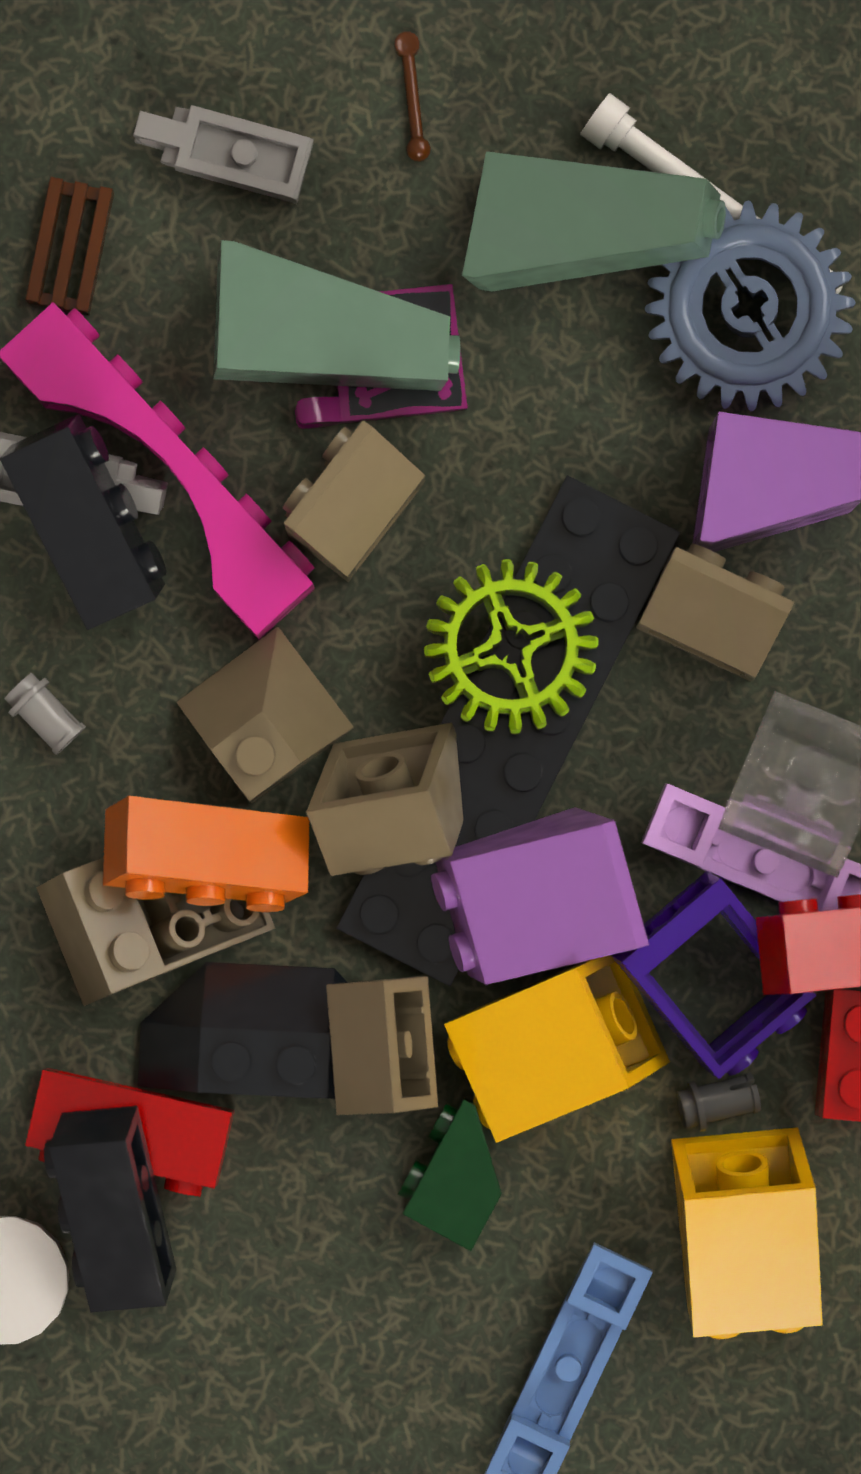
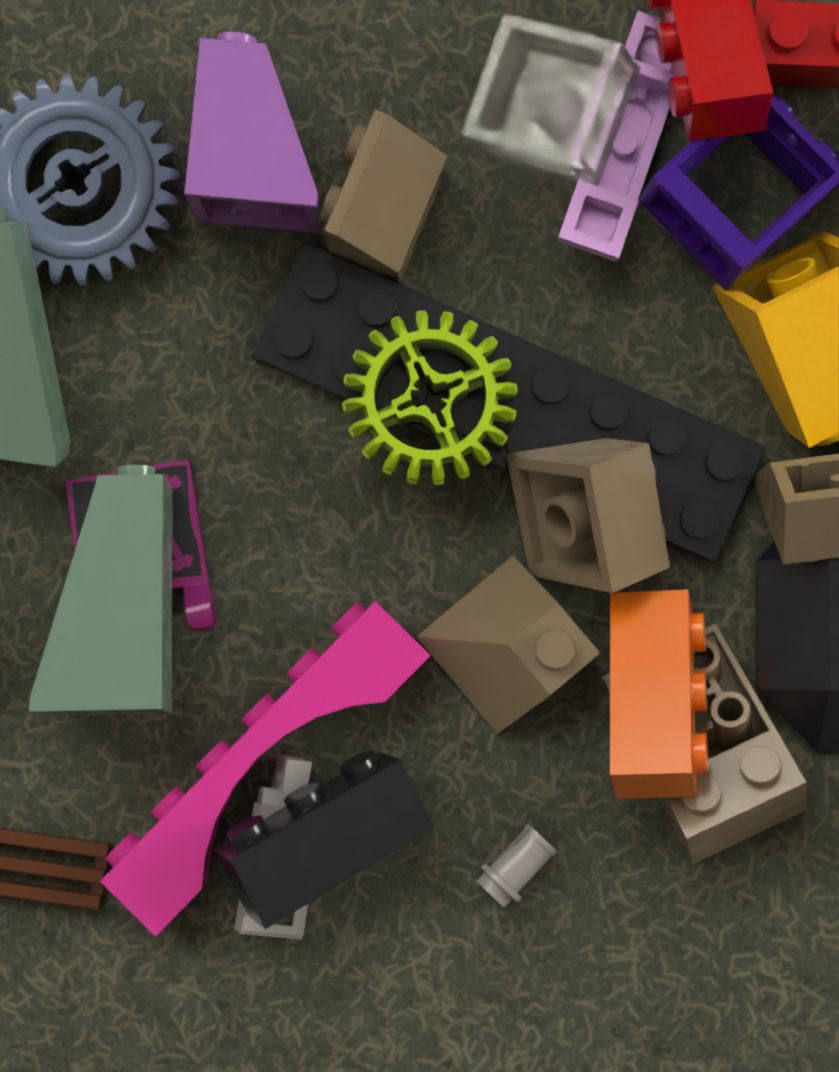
camera: 95 degrees left, 0 degrees up
(352, 500) = (288, 563): dark tan slope -> none
(539, 897) = (680, 353): medium lavender slope -> none

